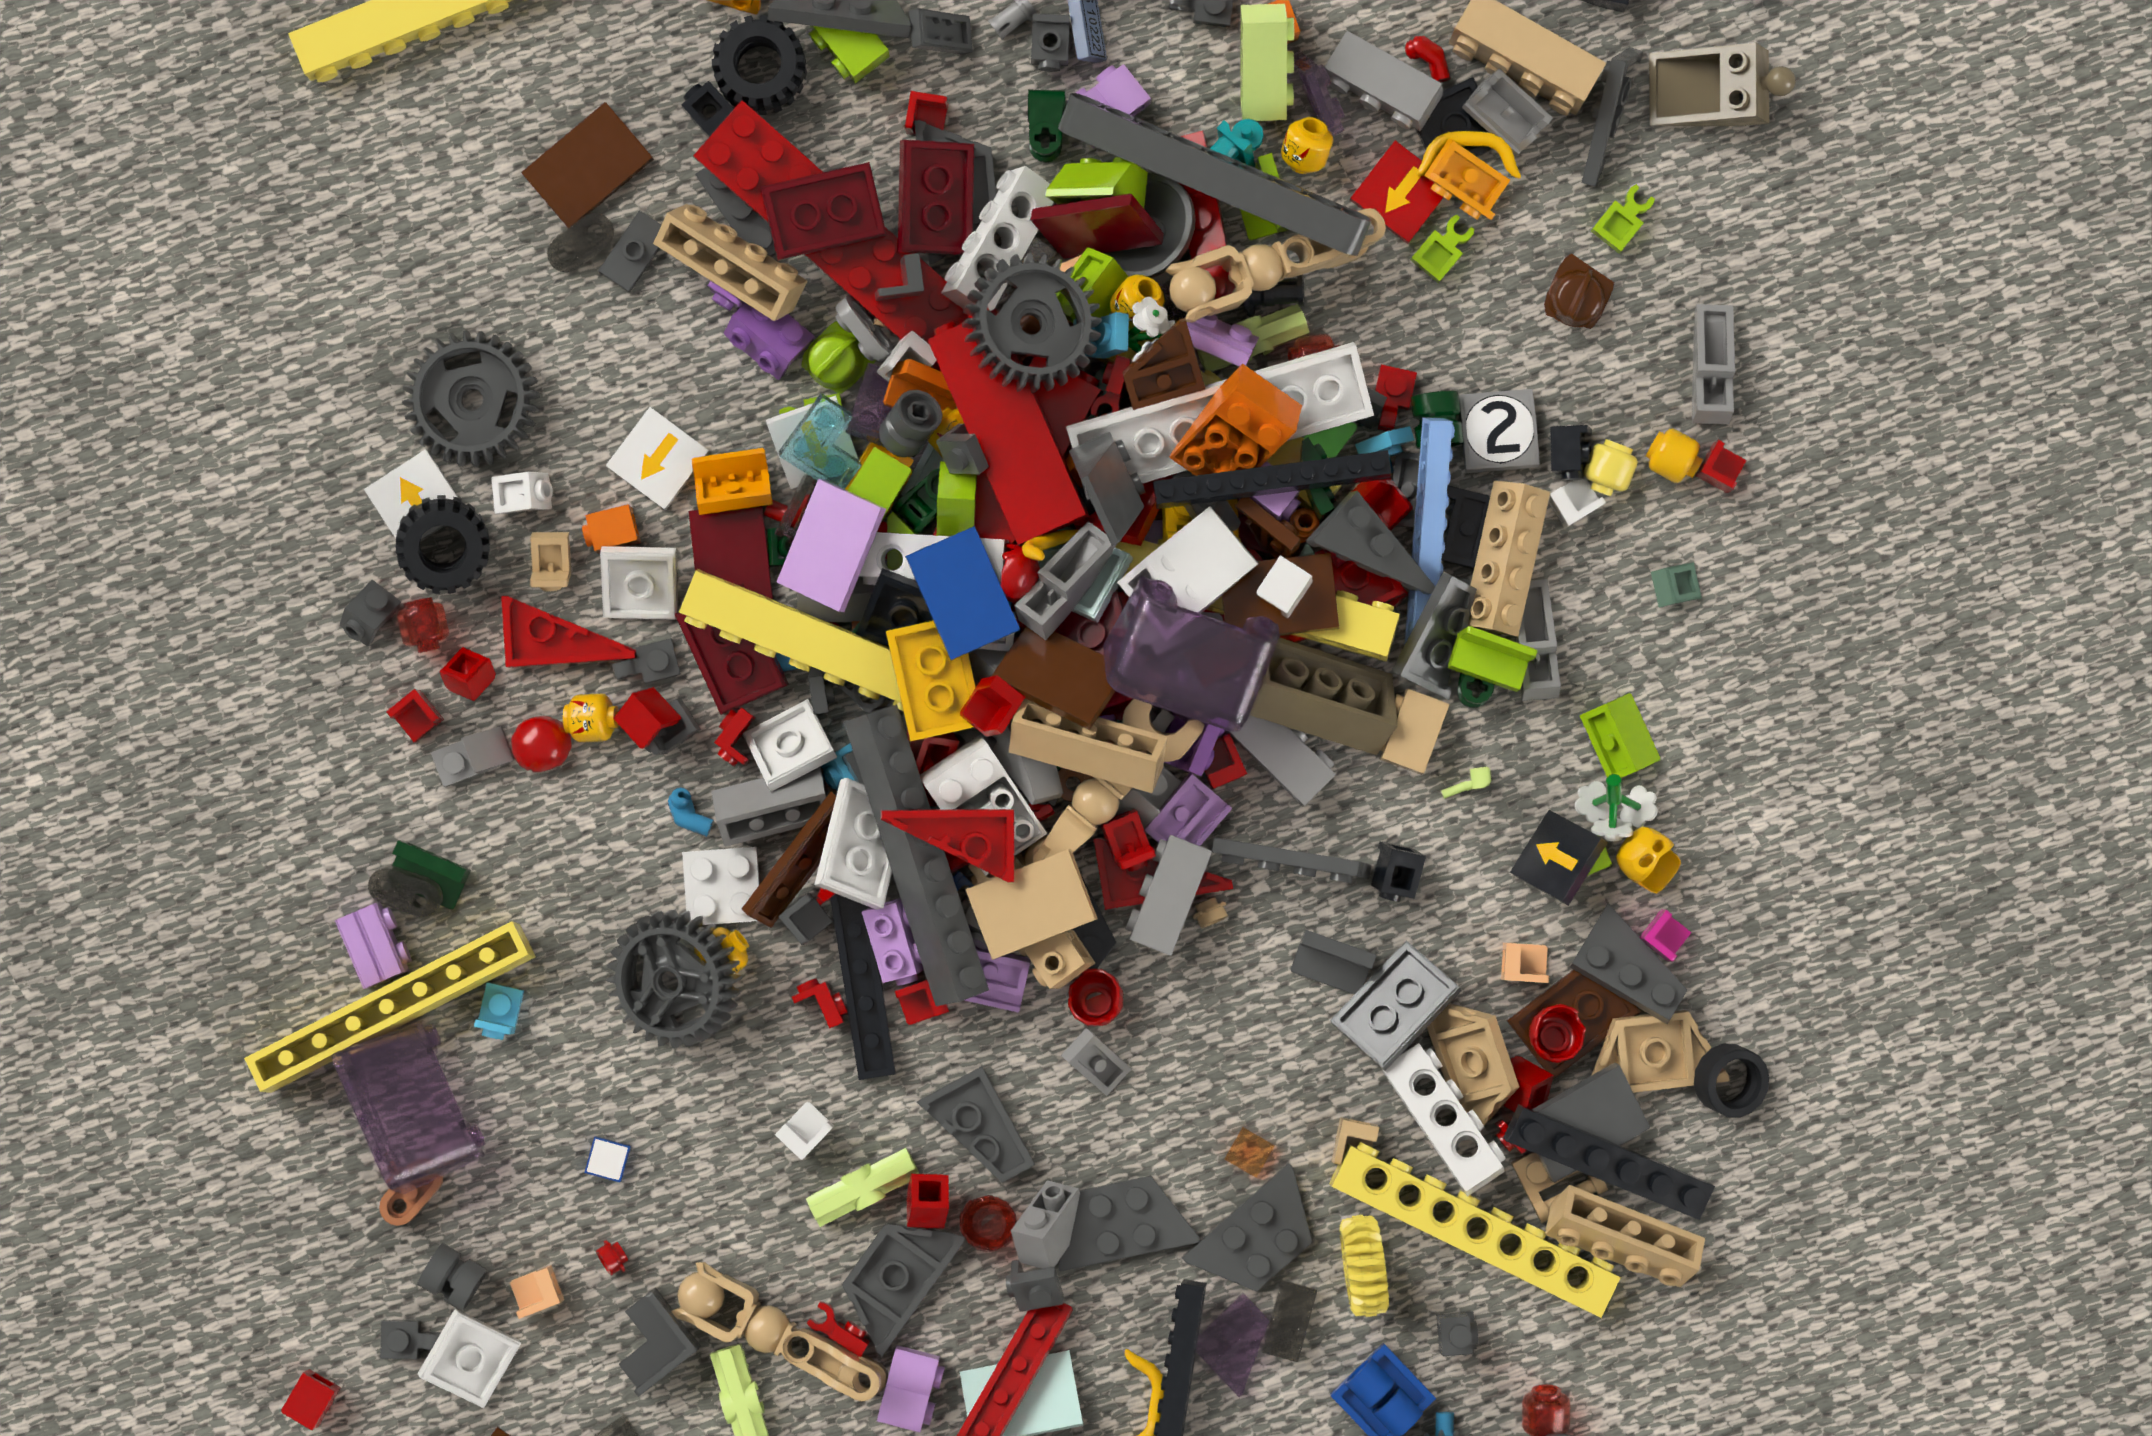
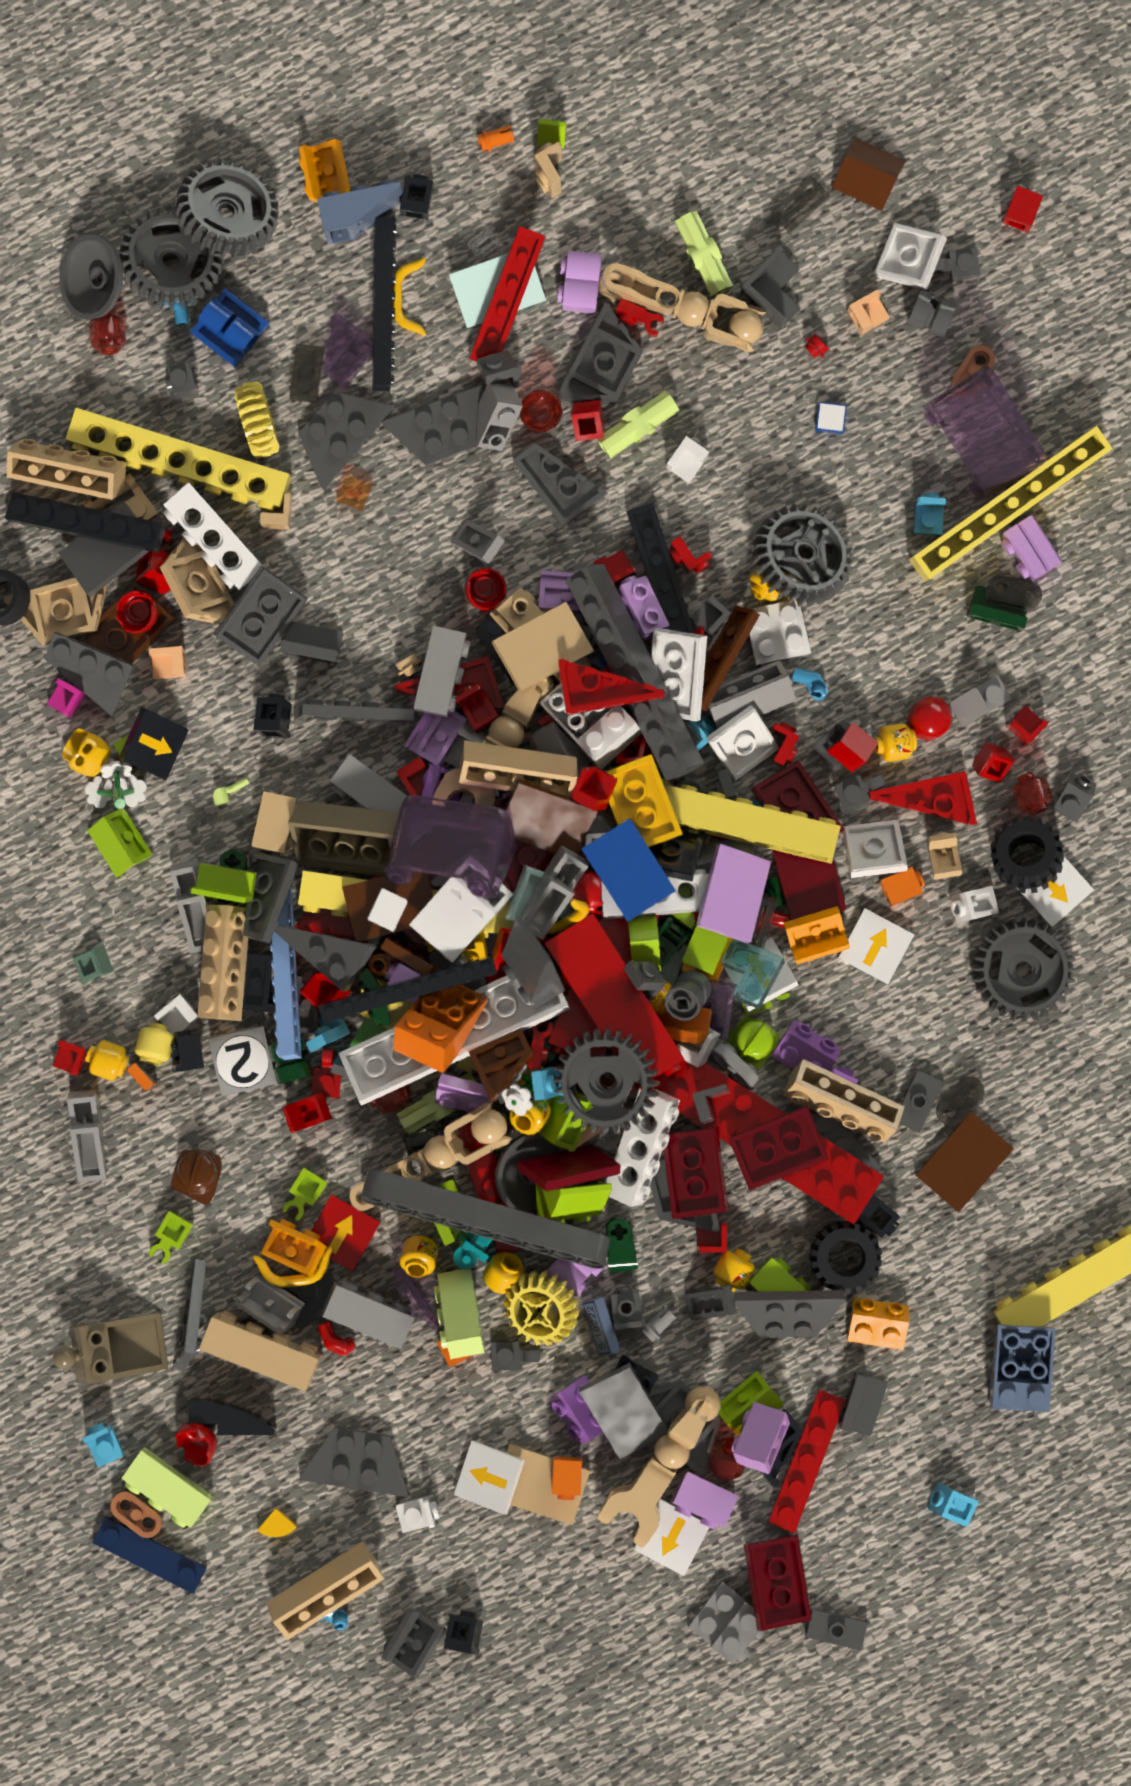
camera: 175 degrees right, 0 degrees up
(904, 69) = (734, 1269): none -> yellow head
(1140, 58) = (550, 1323): none -> light yellow gear
(1201, 108) = (503, 1272): none -> yellow head
(1425, 350) = (307, 1112): none -> red bracket
(1632, 428) = (141, 1076): none -> orange tile

